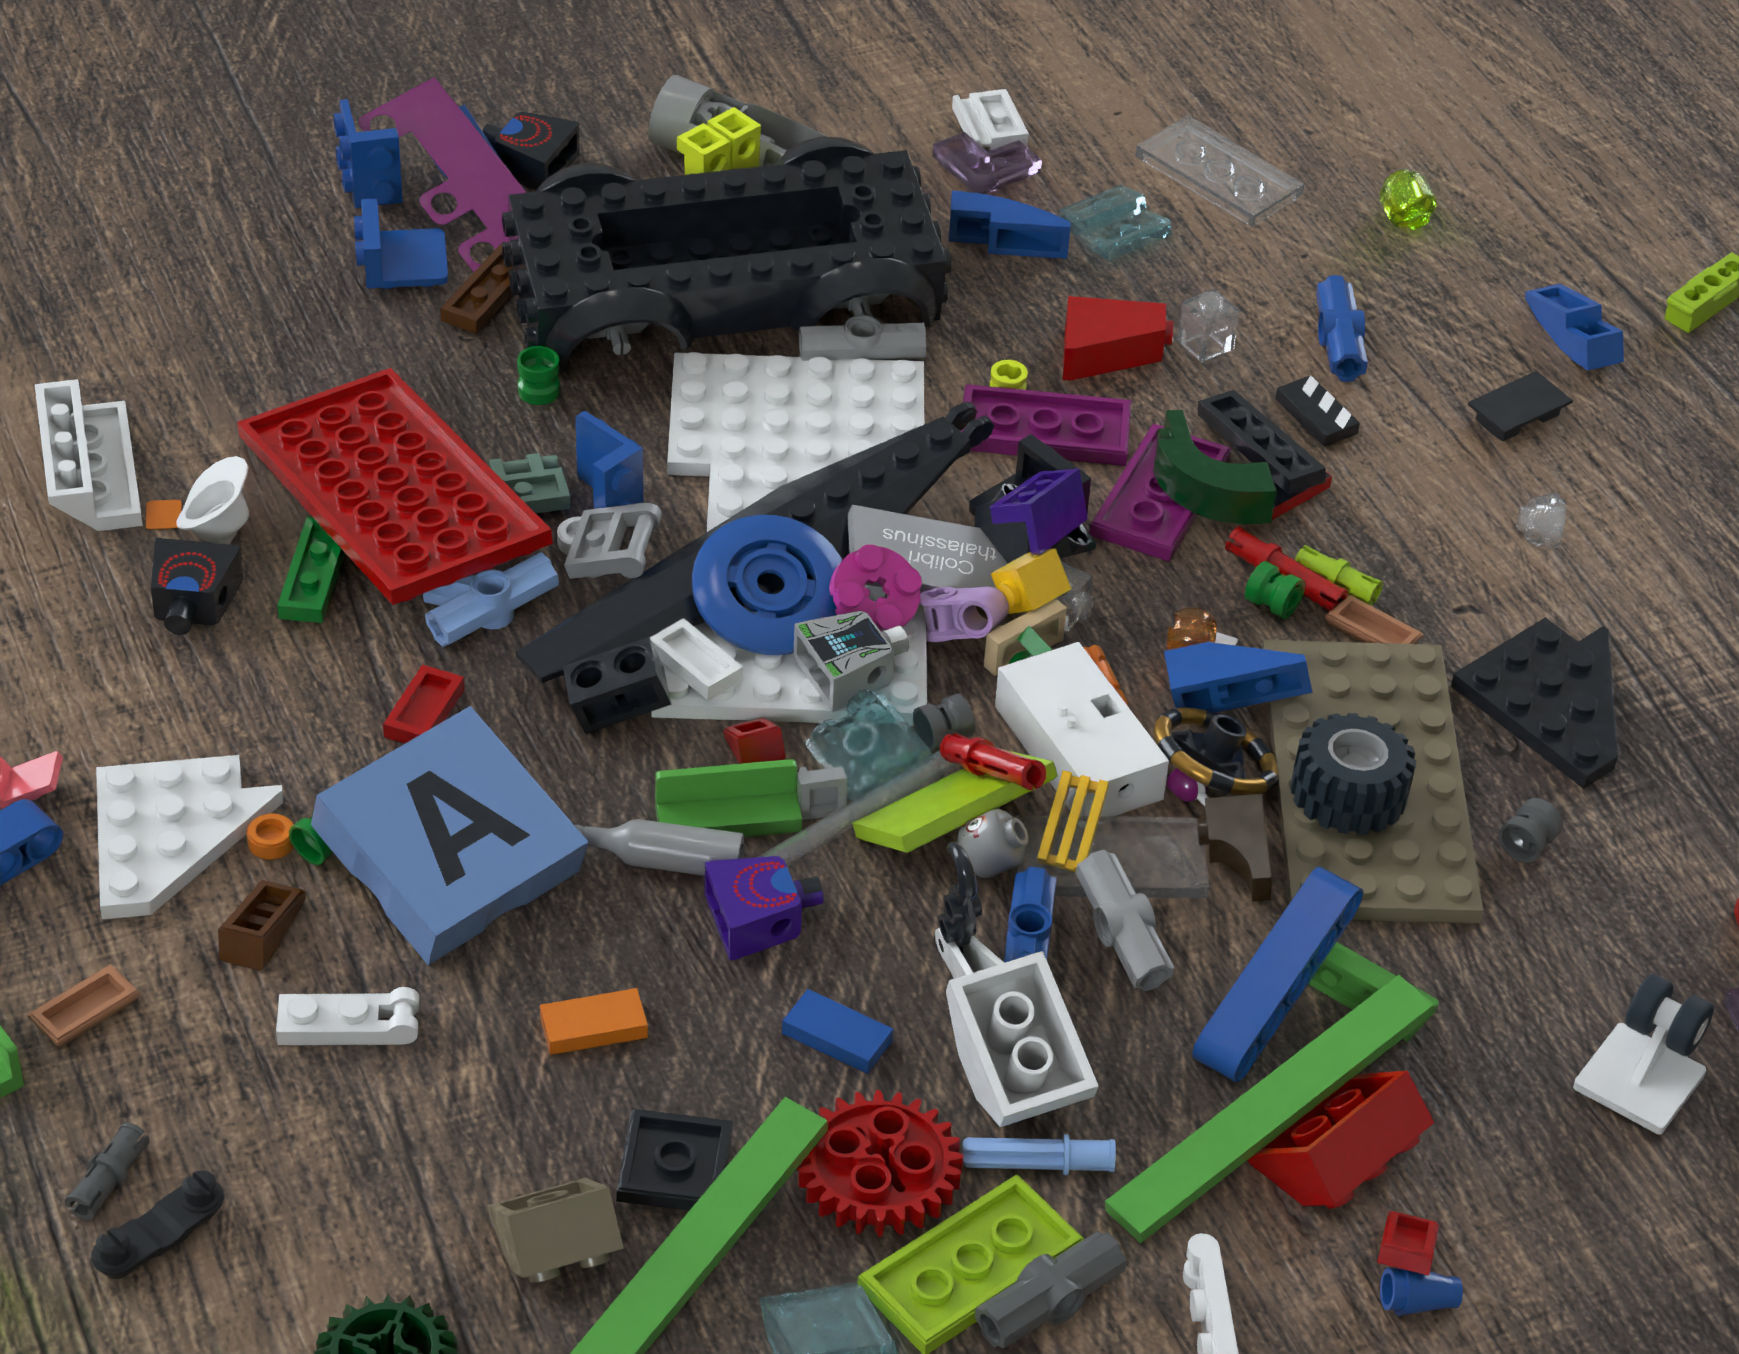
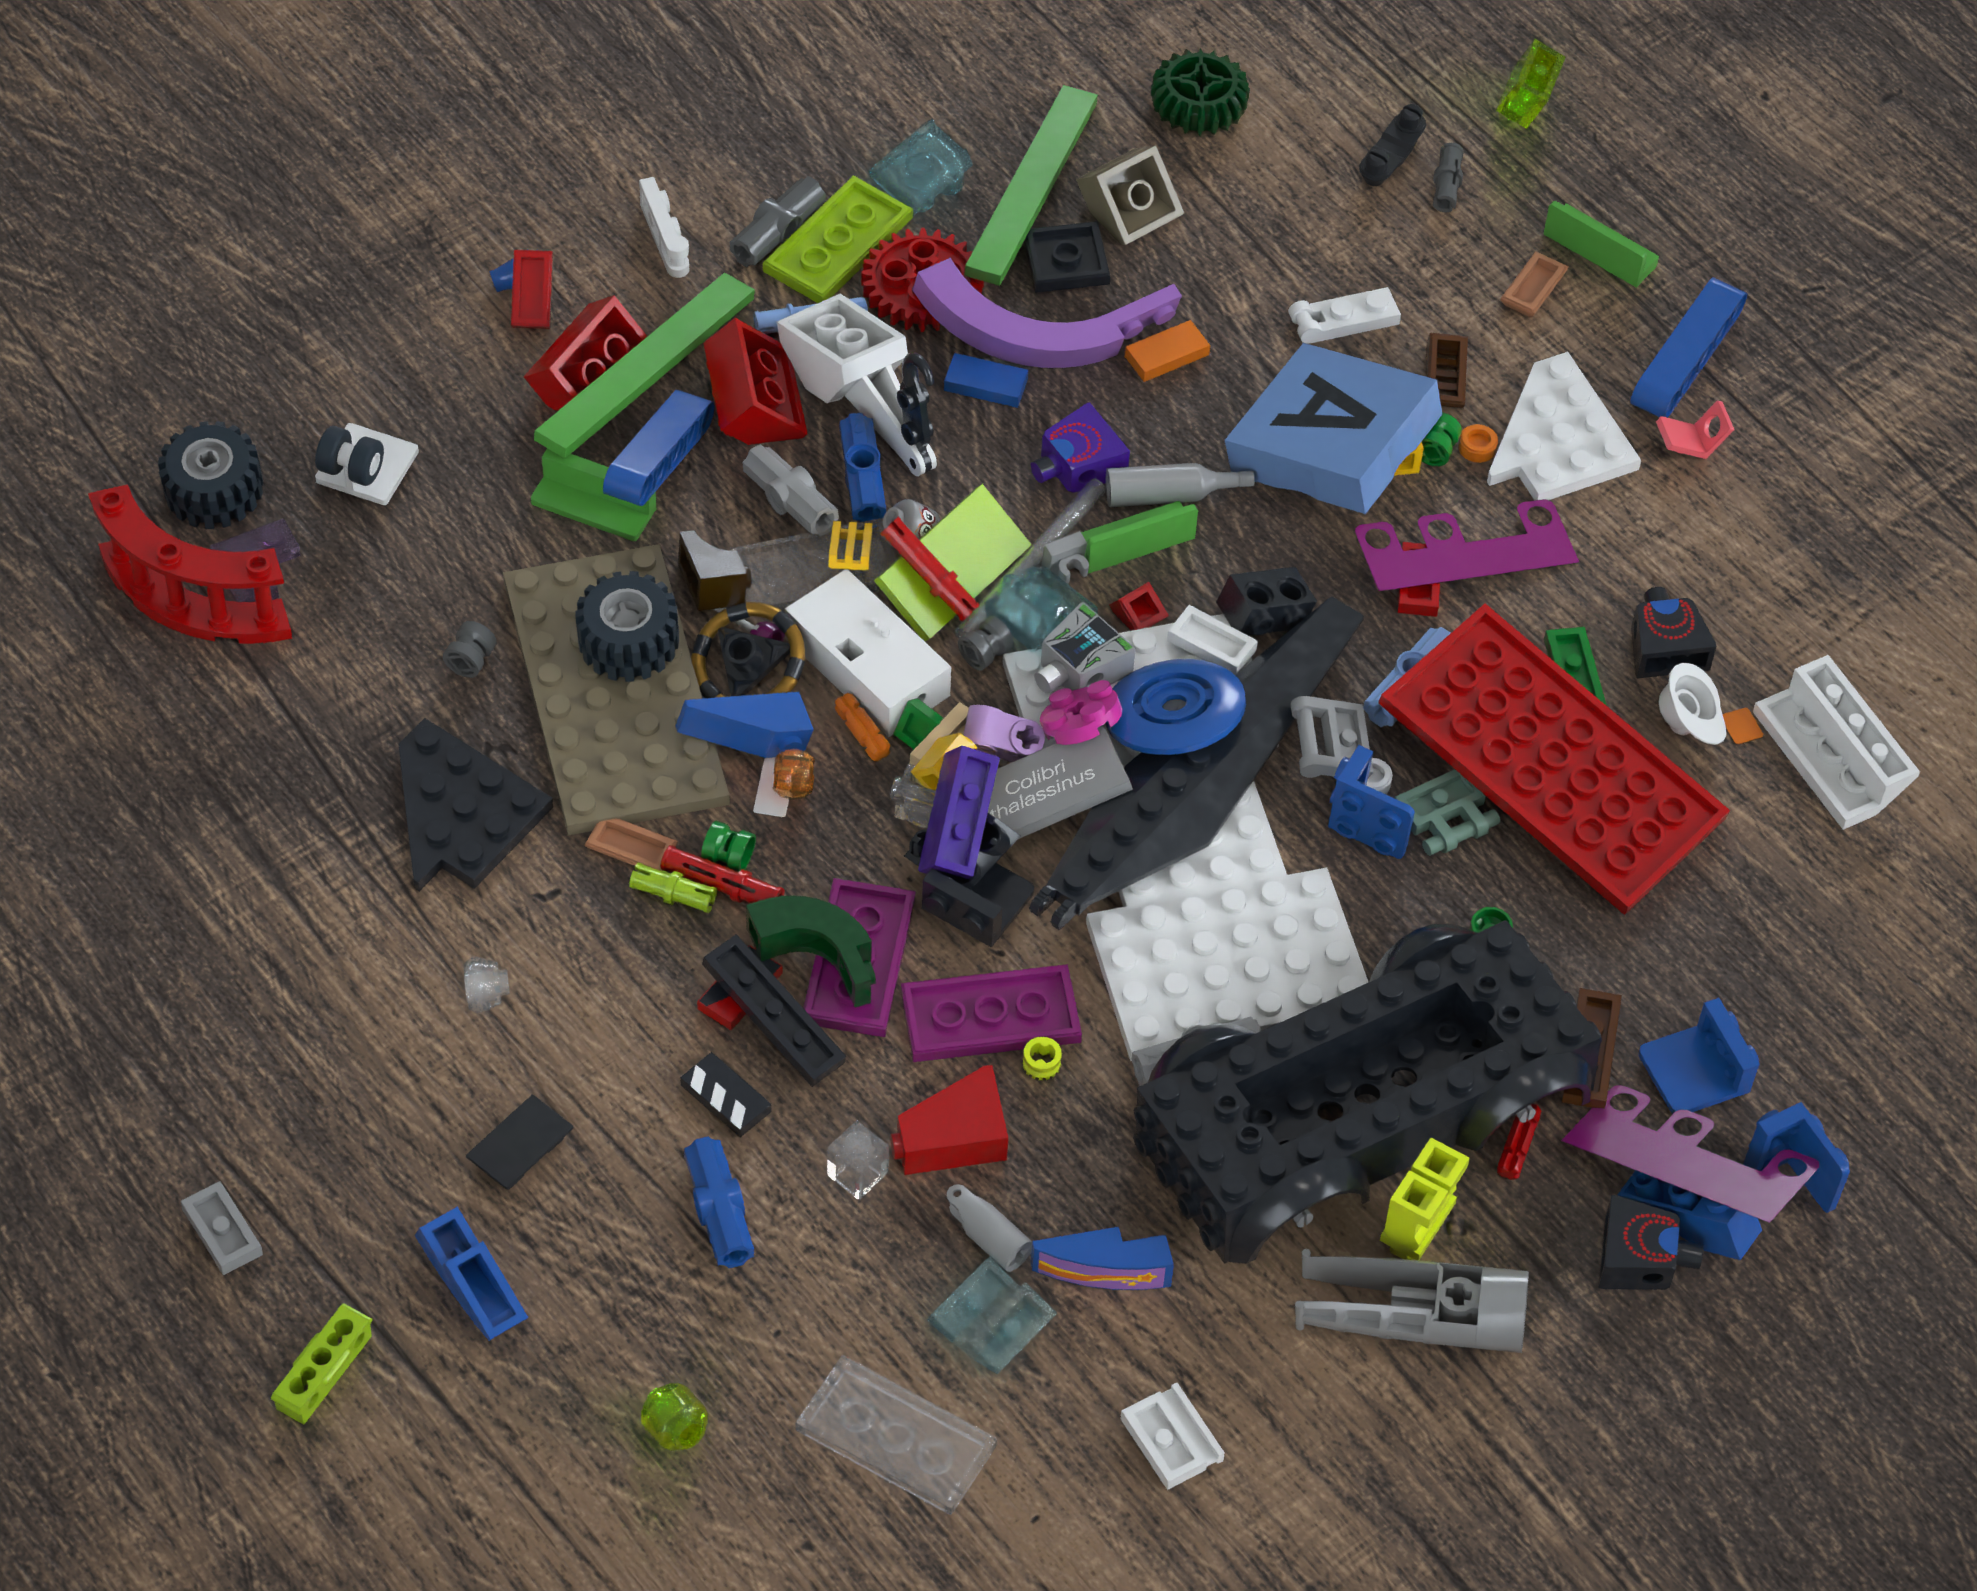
camera: 165 degrees right, 10 degrees up
(362, 707) = (1459, 559): none -> magenta piece
(750, 1031) = (1028, 340): none -> medium lavender arch
(985, 170) = (1154, 1351): clear purple plate -> none
(1098, 264) = (989, 1229): none -> light grey piece
(1141, 1060) = (753, 386): none -> red slope

